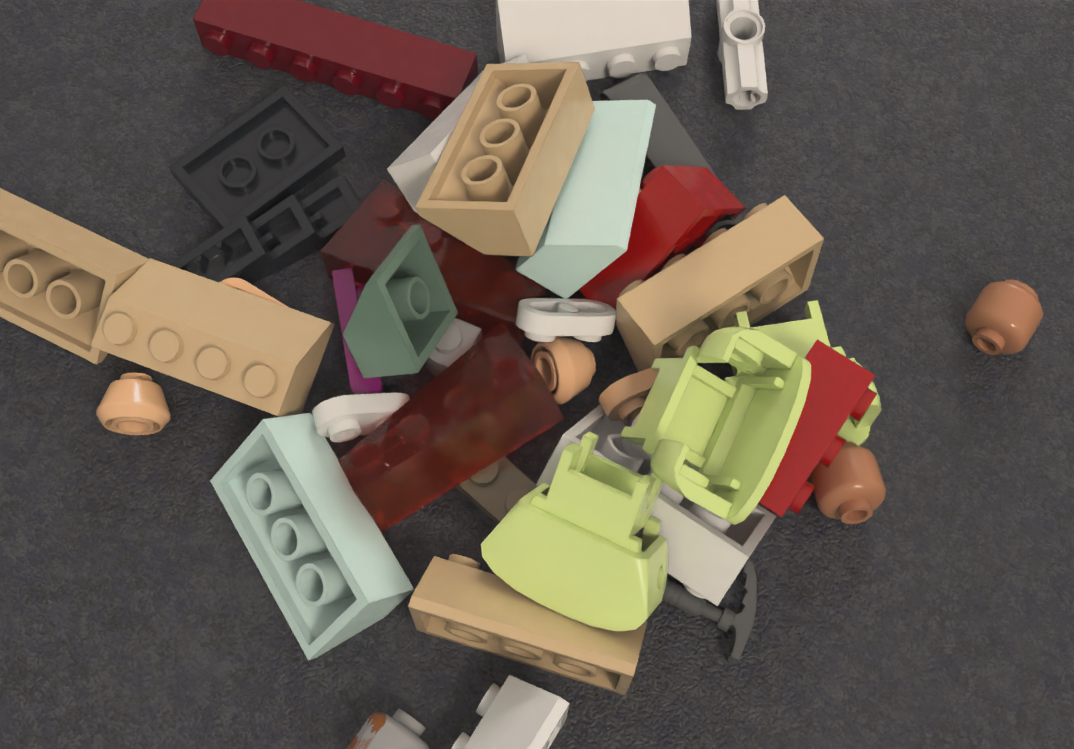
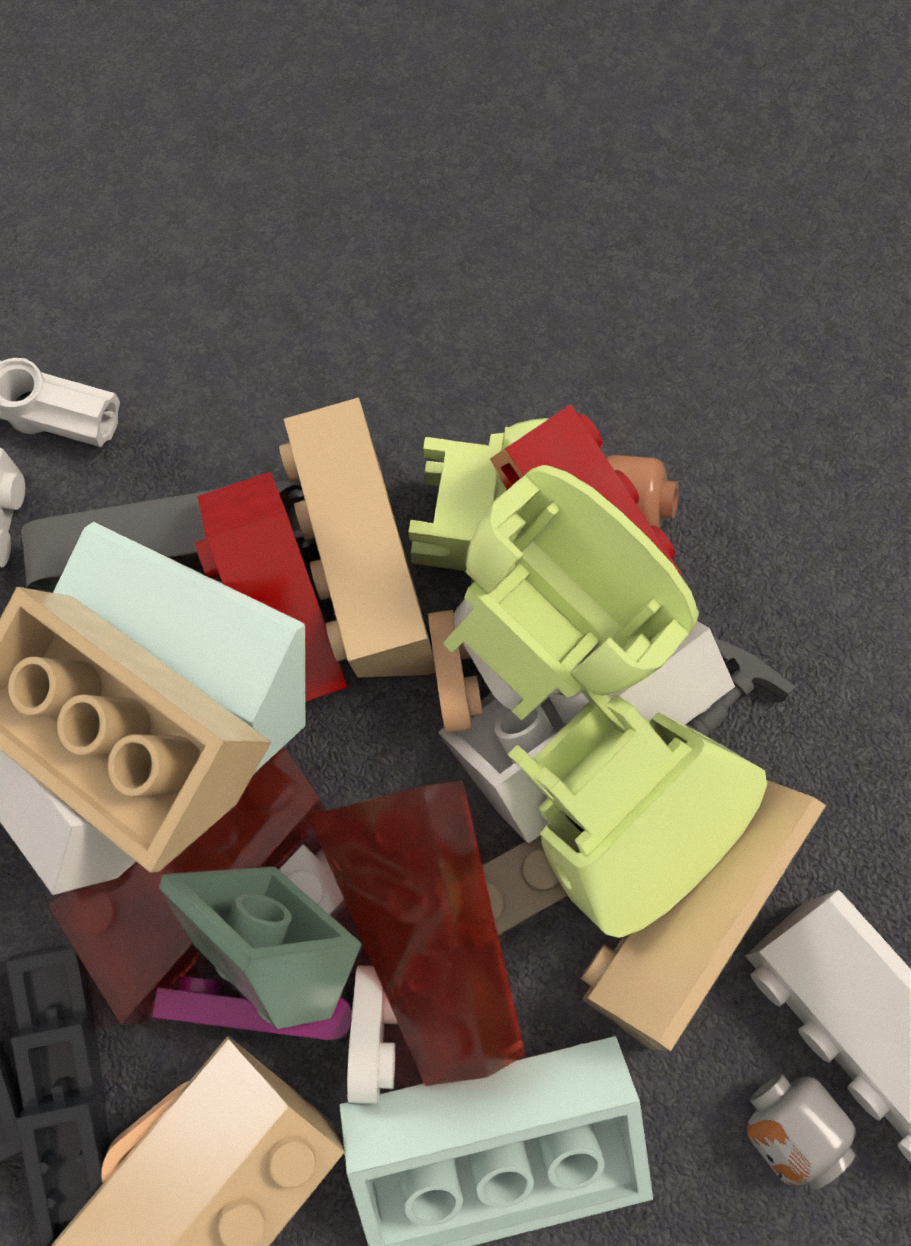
camera: 70 degrees left, 5 degrees up
(553, 317) = (336, 734): white plate -> none
(564, 366) = (385, 760): light nougat cone -> none
(1004, 317) = (491, 262): nougat head -> none

